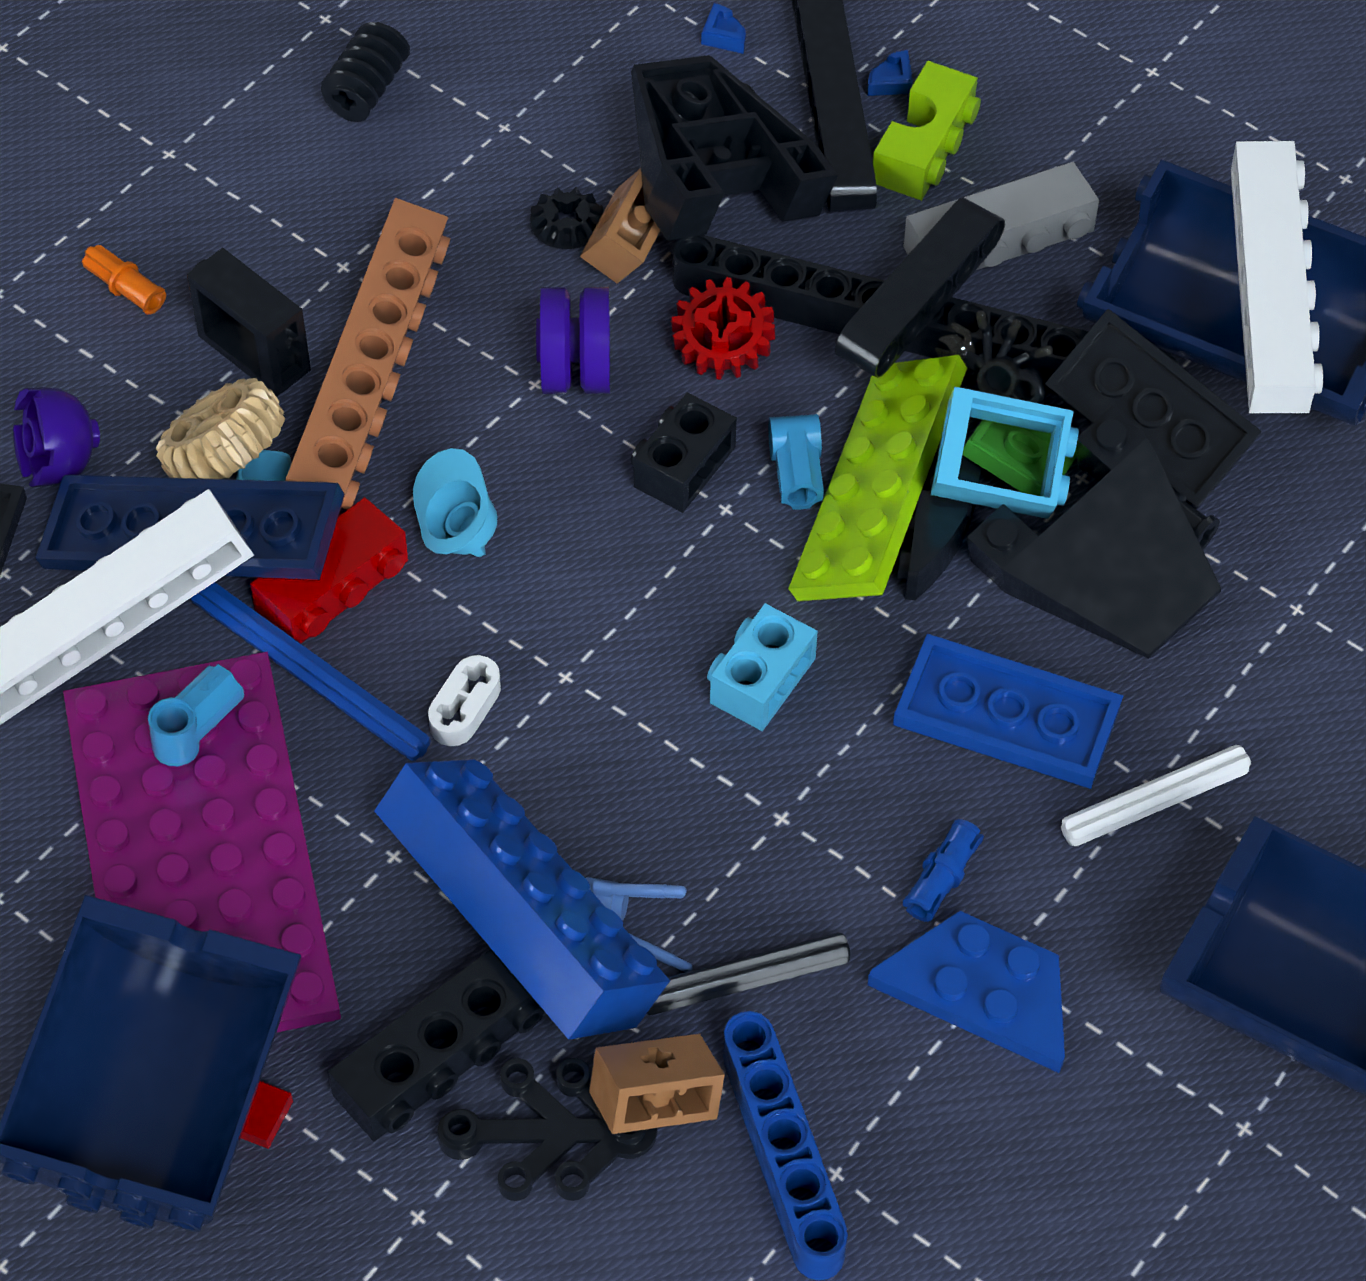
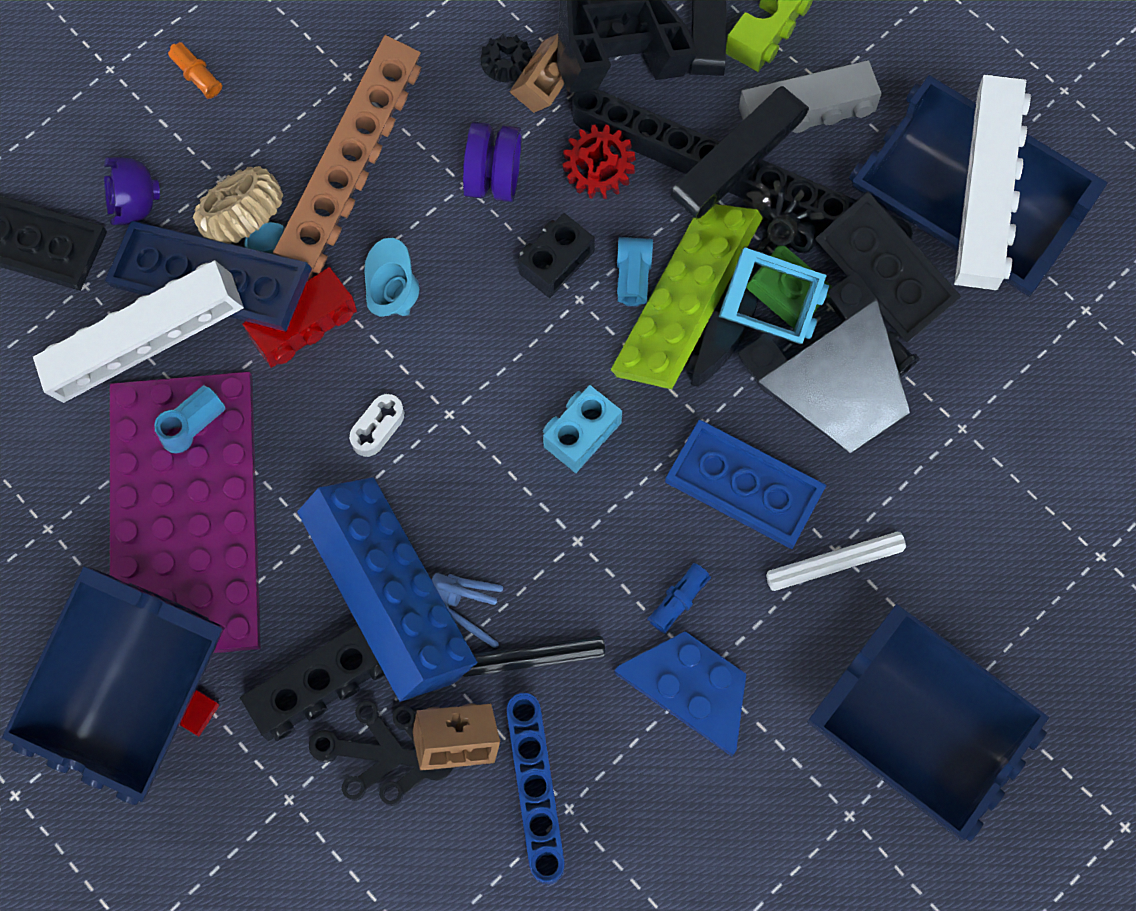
camera: 10 degrees right, 15 degrees up
(249, 321) = (270, 119): black window -> none
(313, 671) = (280, 391): blue axle -> none

